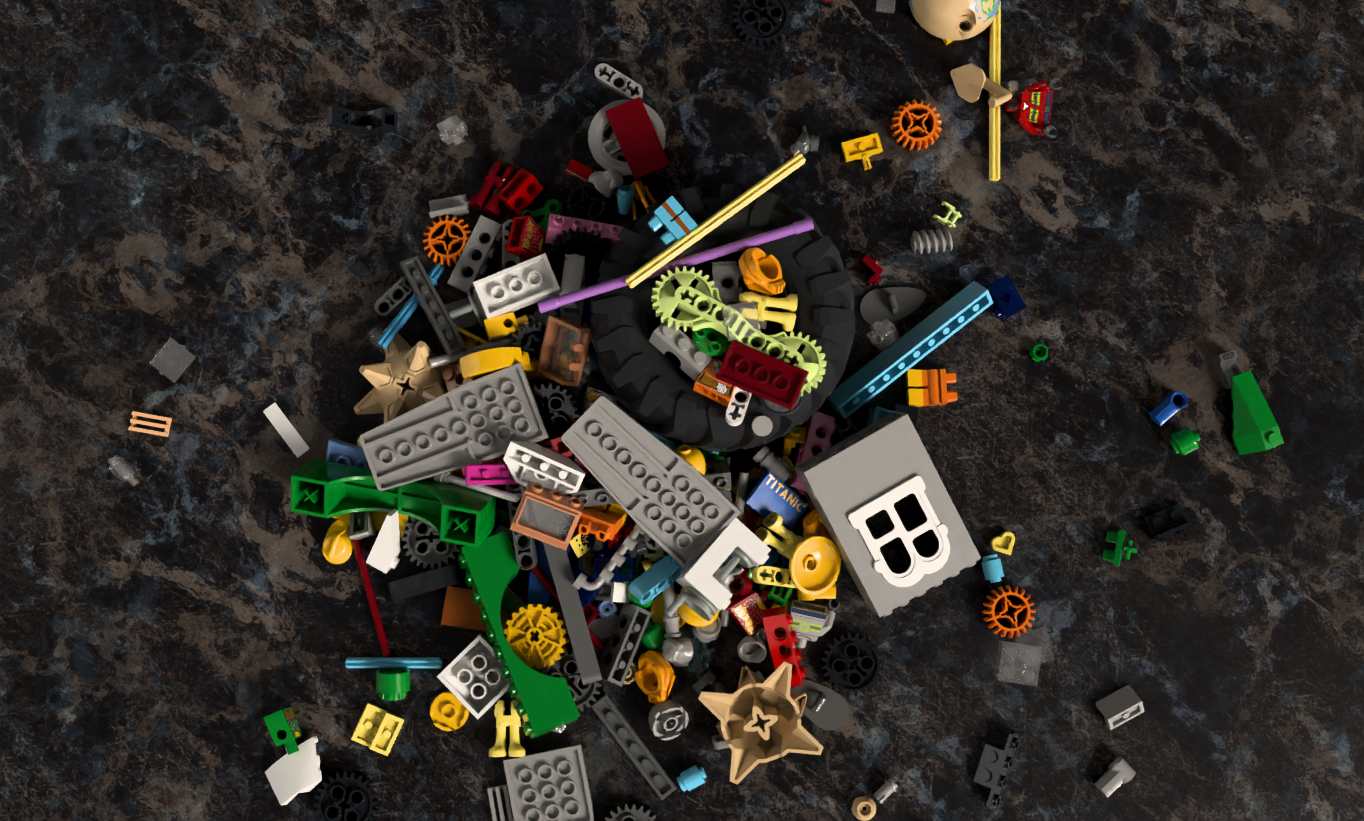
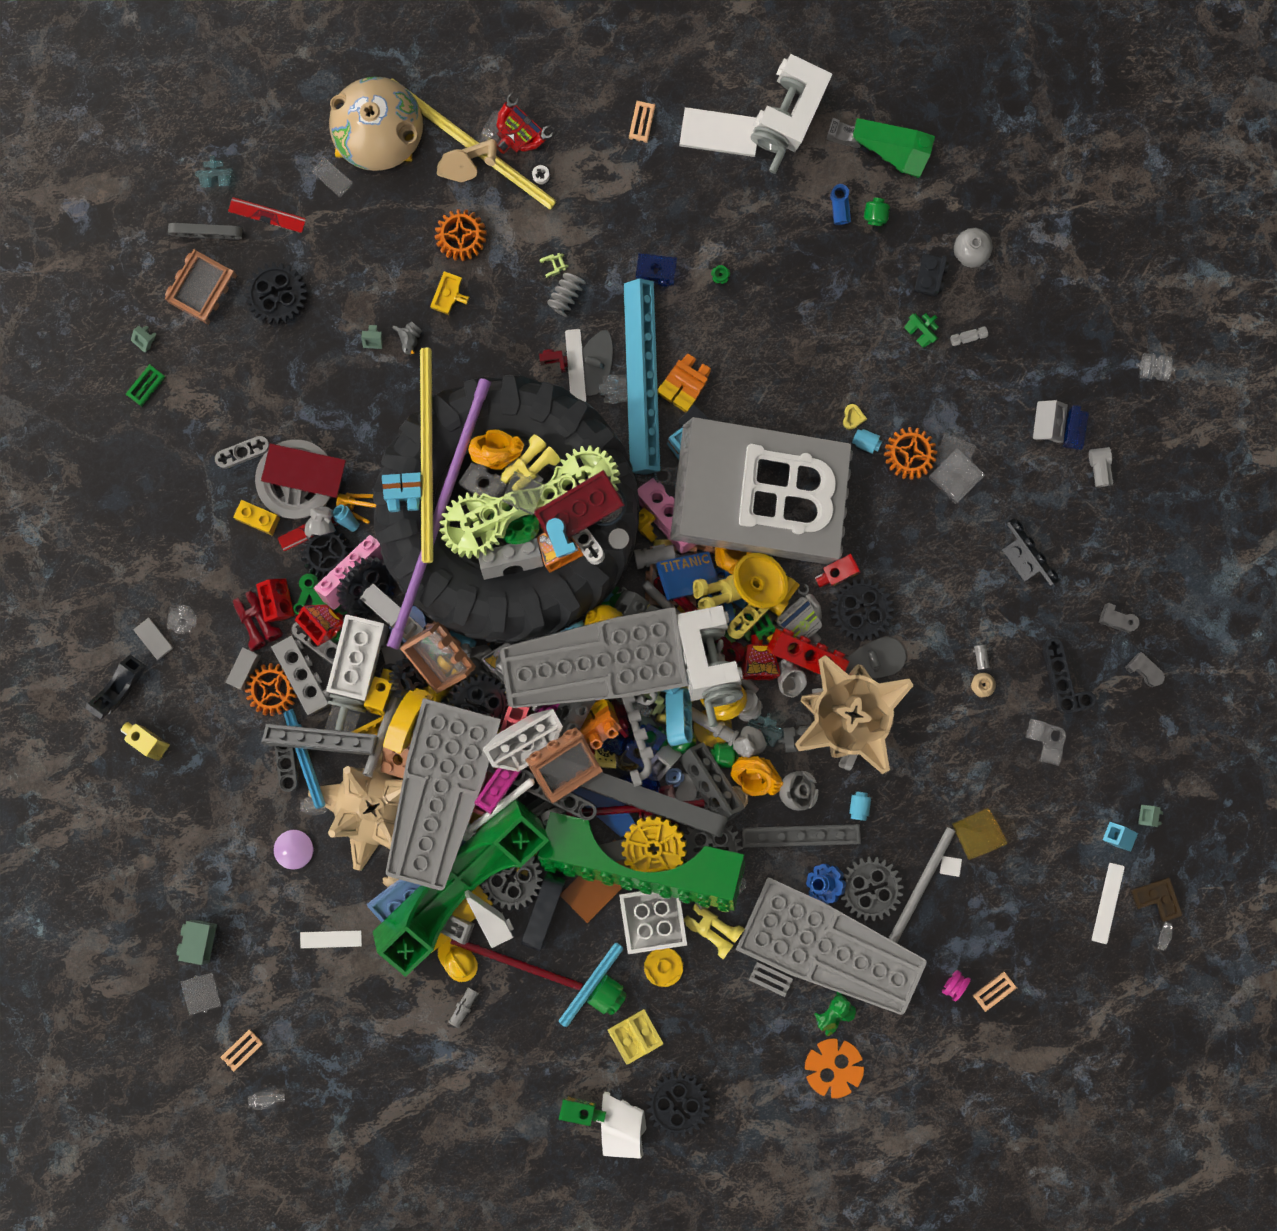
camera: 50 degrees left, 0 degrees up
(207, 327) = (196, 942): none -> sand green piece
(304, 574) = (463, 1007): none -> light grey pin
(335, 349) = (293, 849): none -> lavender dish
(337, 172) = (144, 741): none -> light yellow torso
(423, 121) = (153, 638): none -> light grey tile
(575, 130) = (256, 517): none -> yellow brick
(609, 796) = (826, 883): none -> blue plant
(724, 377) = (557, 533): none -> medium azure leg
(782, 116) = (372, 338): none -> sand green tile
(877, 627) = (847, 567): none -> red torso
(880, 290) = (575, 363): none -> white sticker
(1011, 146) = (540, 168): none -> white bush
(1100, 207) = (638, 137): none -> light nougat tile
(1130, 732) = (1076, 428): none -> clear blue bracket
(1140, 589) = (969, 336): none -> light grey axle
(1153, 268) = (718, 132): none -> white tile
(1193, 310) = (777, 128): none -> white piece
(1215, 540) = (973, 247): none -> light grey cylinder
(1232, 767) = (1154, 366): none -> clear wheel

